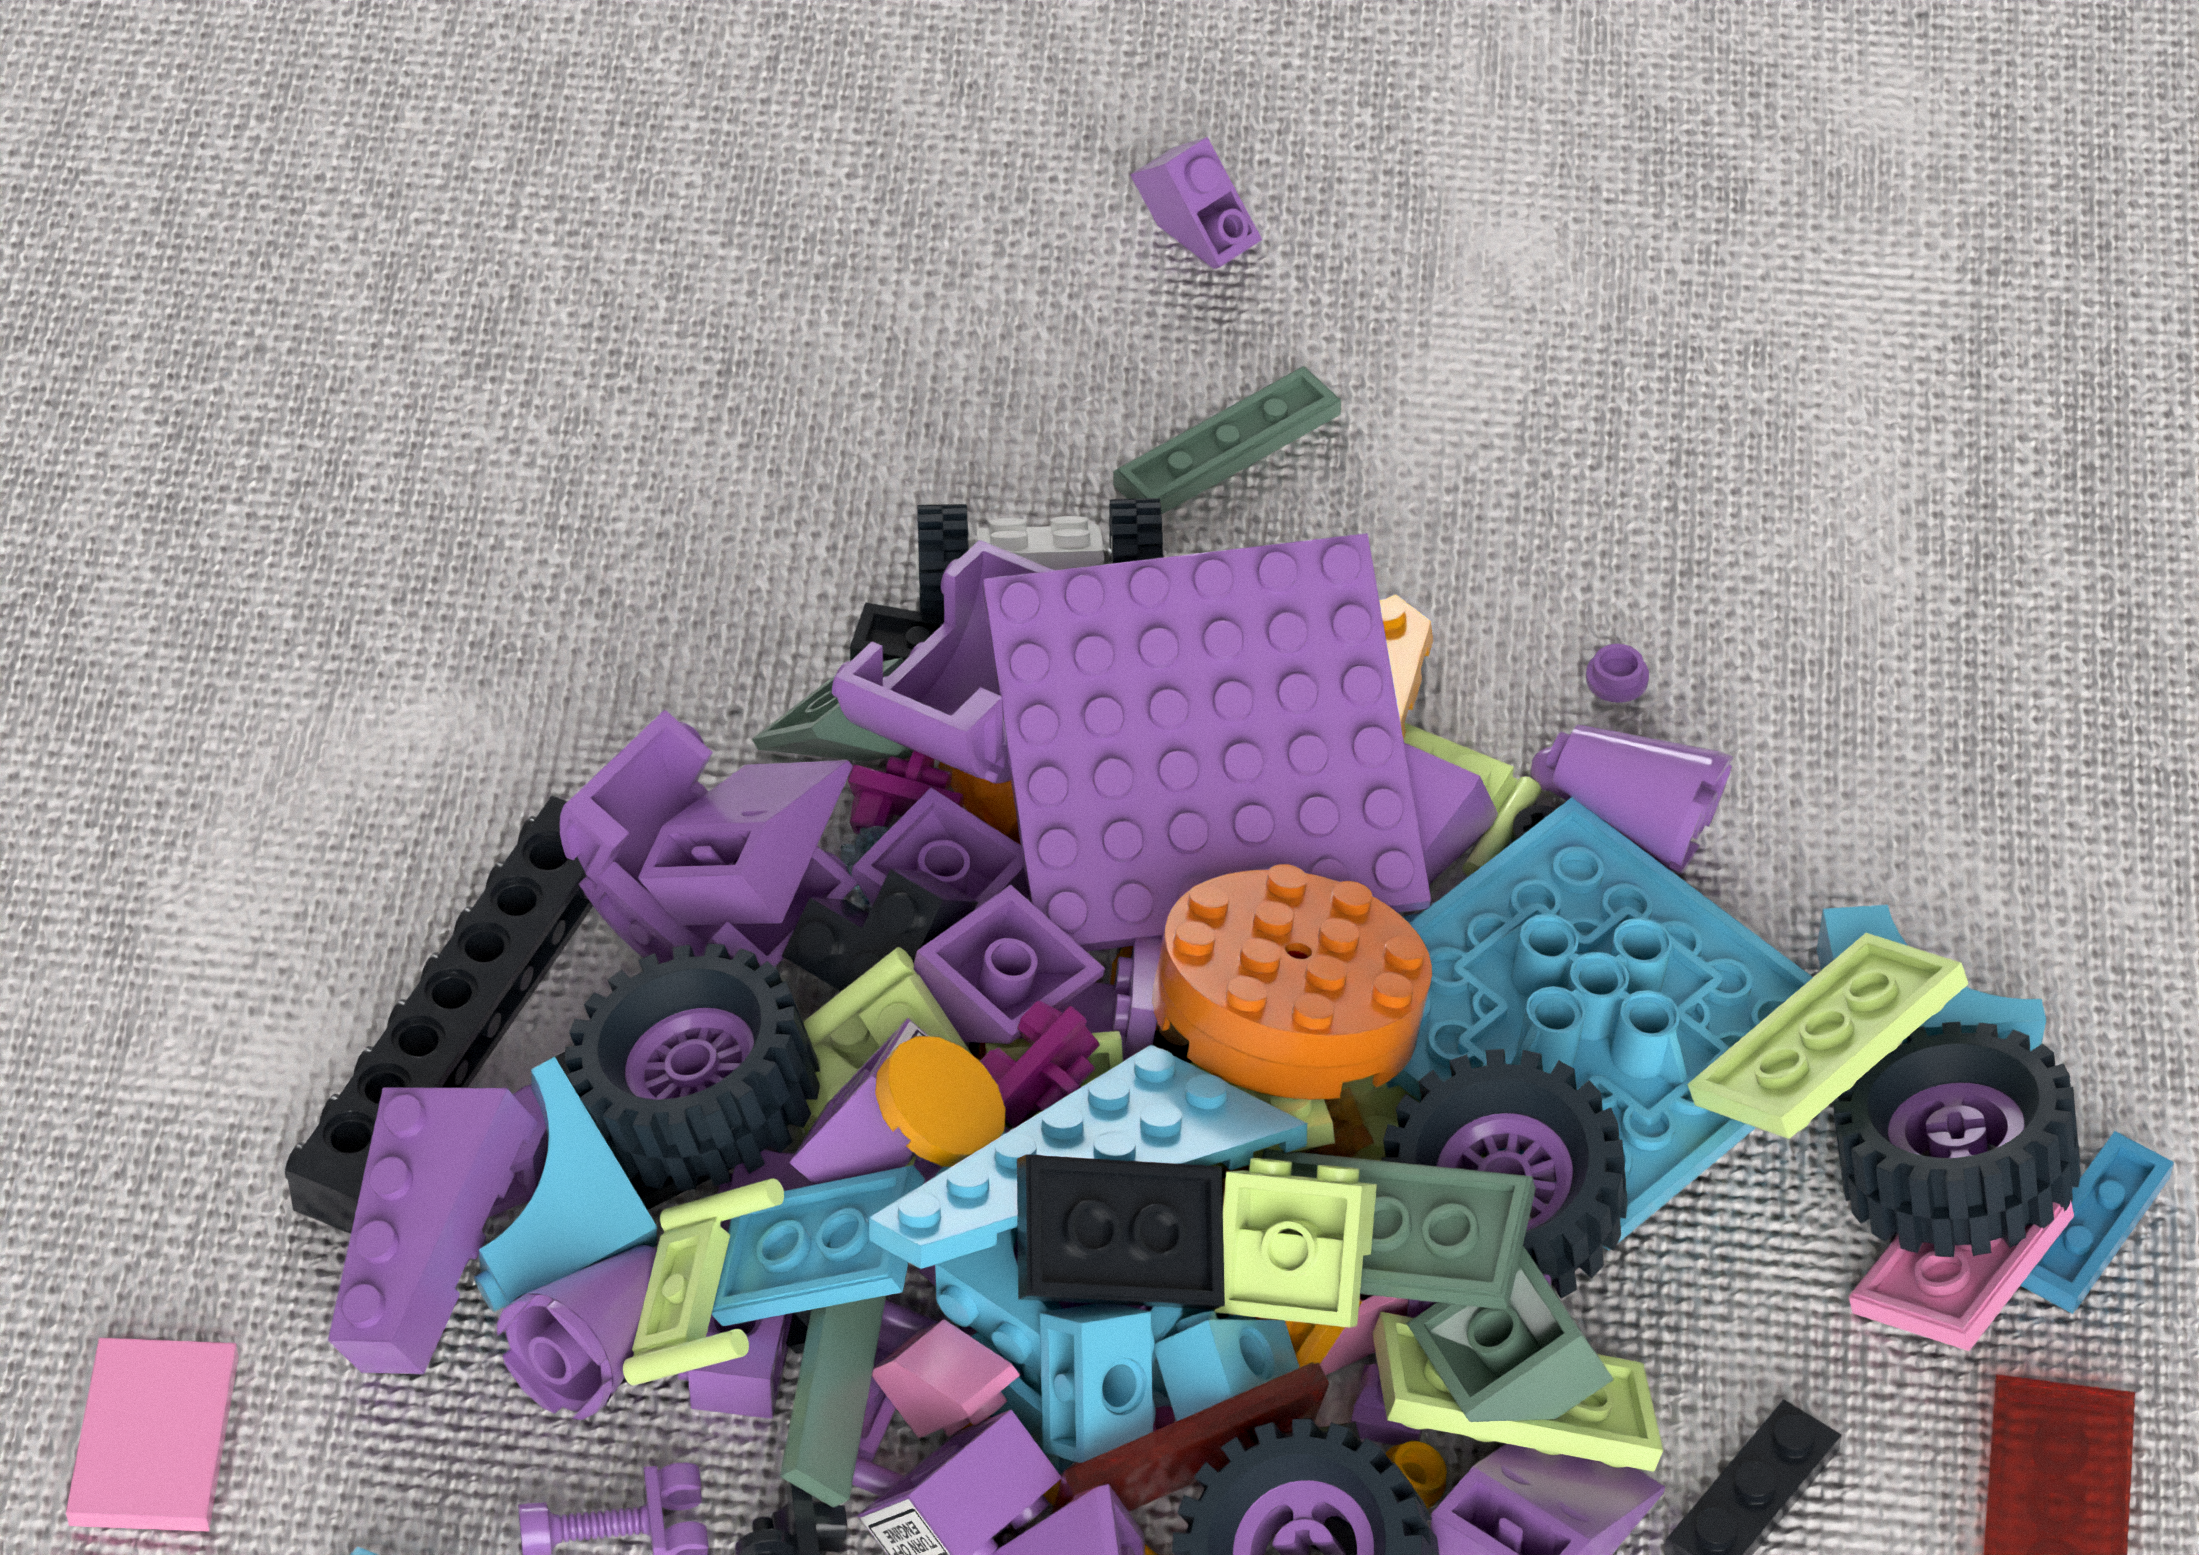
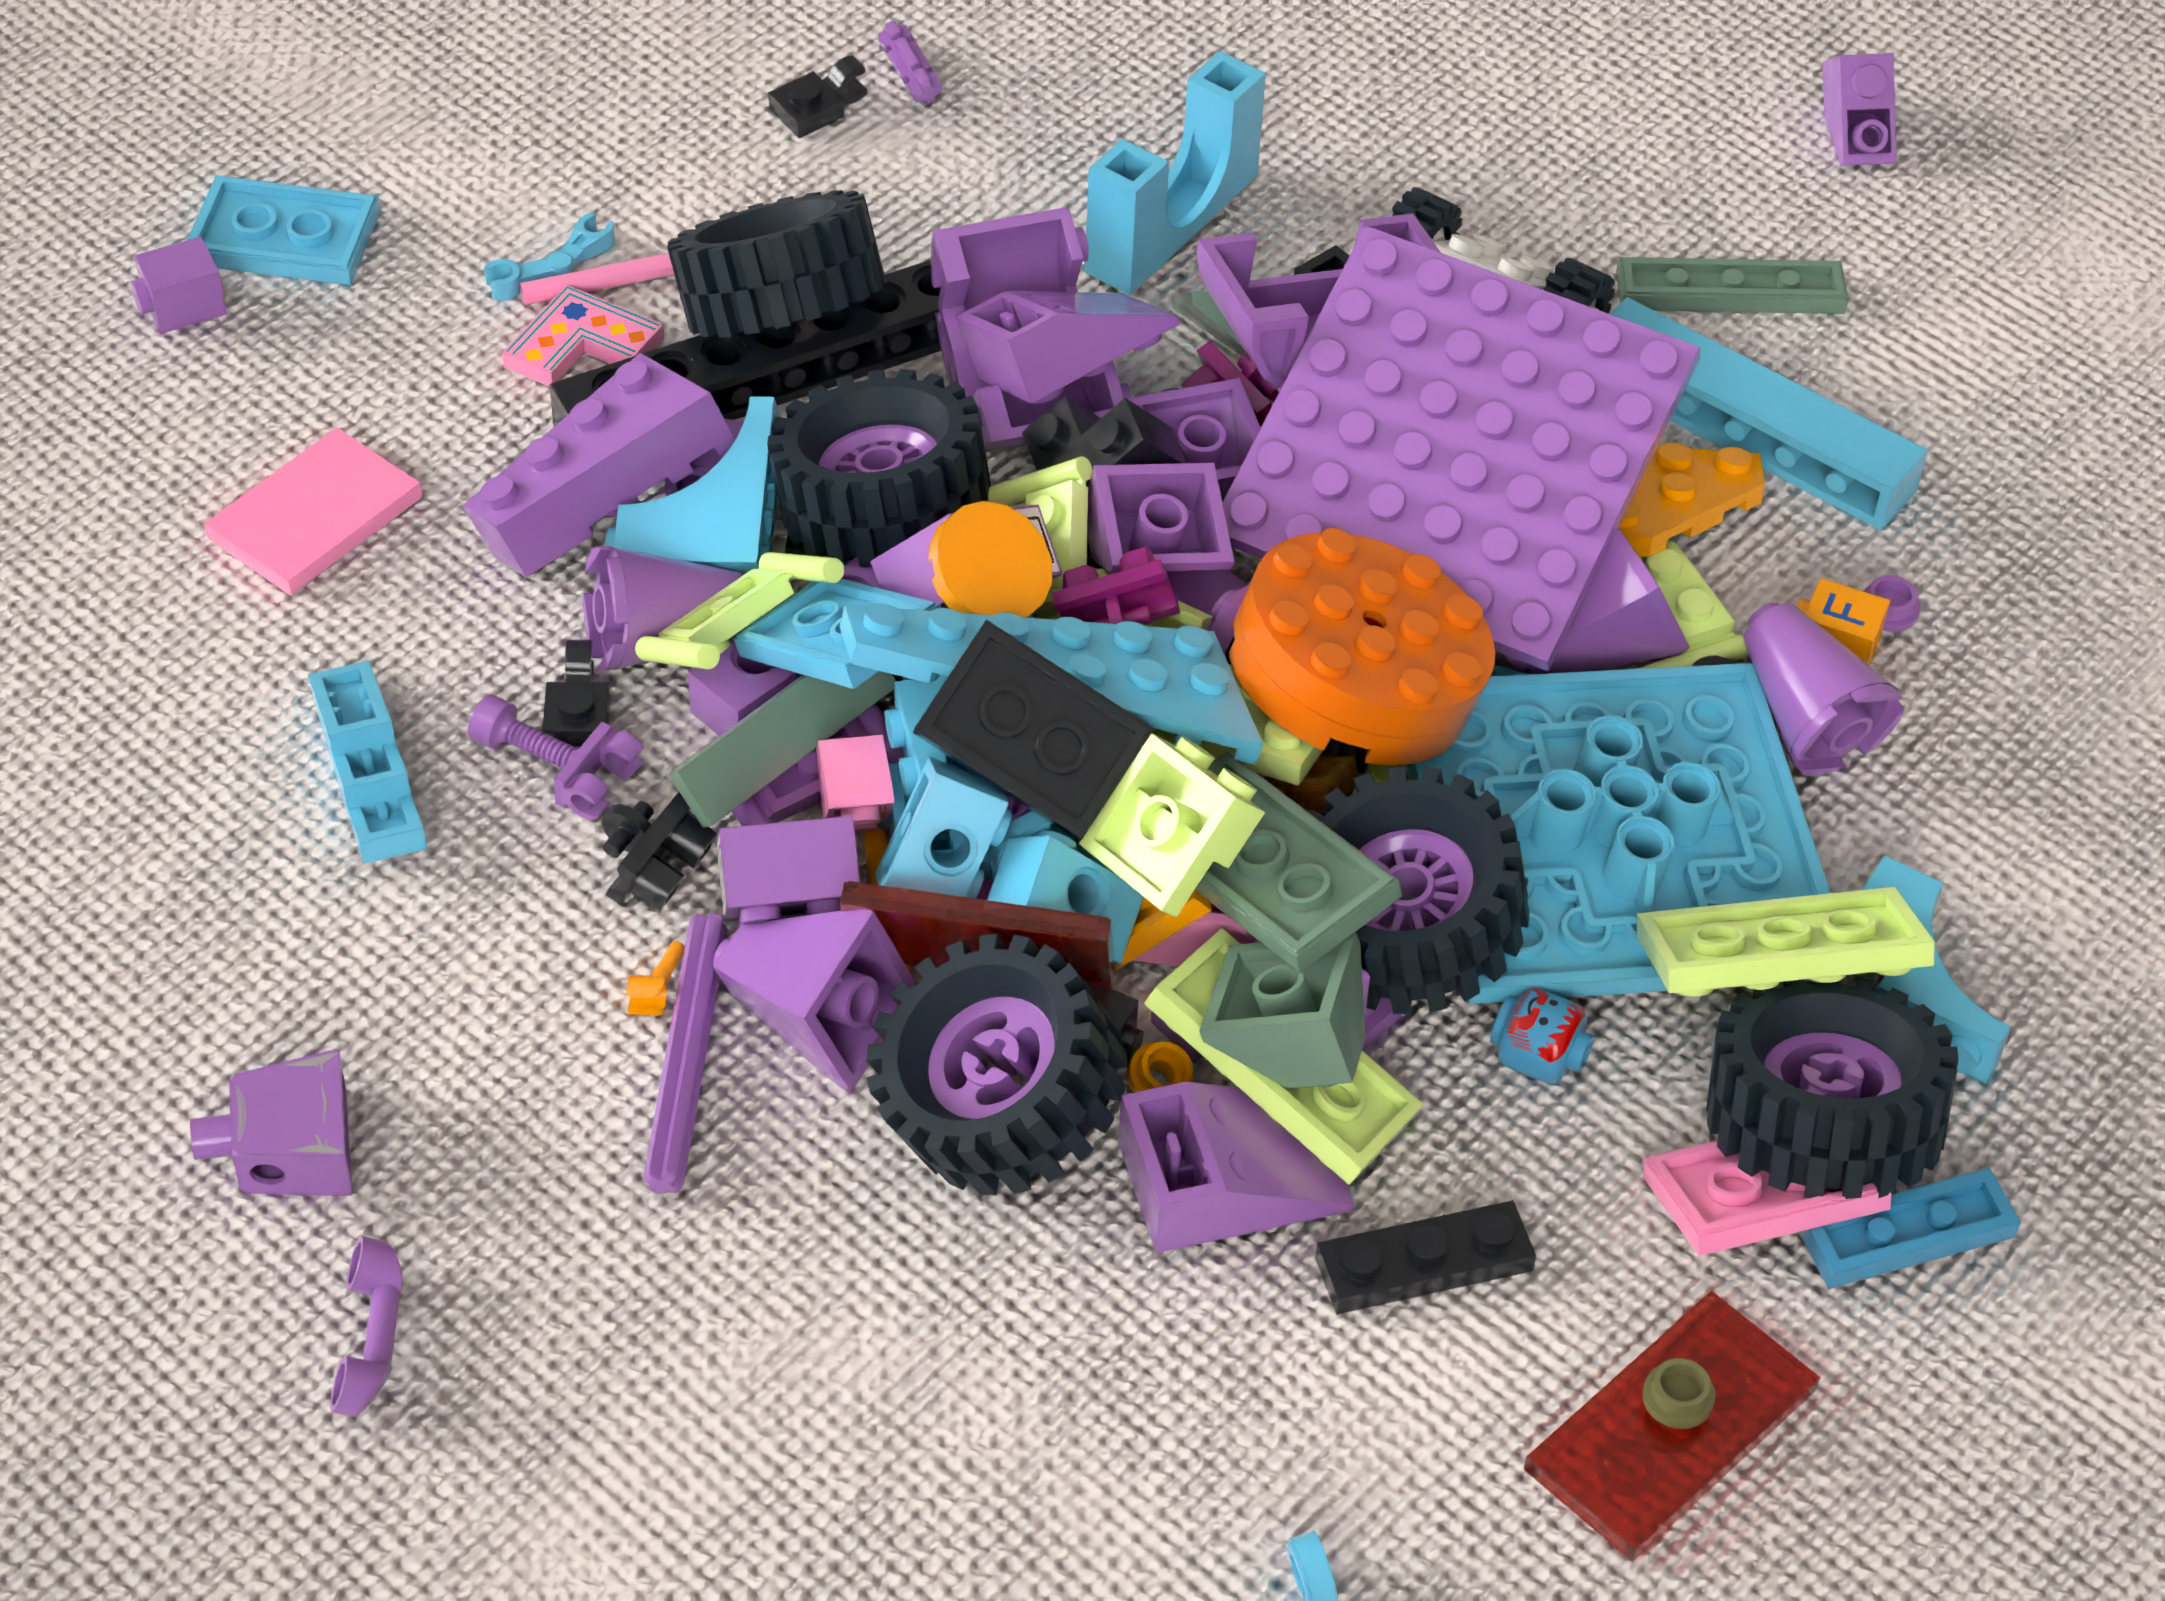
camera: 35 degrees right, 0 degrees up
(145, 1046) = (582, 245): none -> medium azure piece
(223, 1009) = (598, 278): none -> bright pink bar
(229, 1092) = (579, 325): none -> bright pink tile
(234, 733) = (815, 103): none -> black plate
(289, 638) = (910, 63): none -> medium lavender axle
(406, 921) = (776, 263): none -> black wheel
(590, 1470) = (578, 704): none -> black plate
(683, 626) = (1144, 210): none -> medium azure arch
(1417, 554) = (1792, 427): none -> medium azure brick
(1603, 703) = (1848, 615): none -> light orange brick
(1683, 1241) = (1542, 1035): none -> dark azure head
(2055, 1476) = (1679, 1393): none -> olive plate

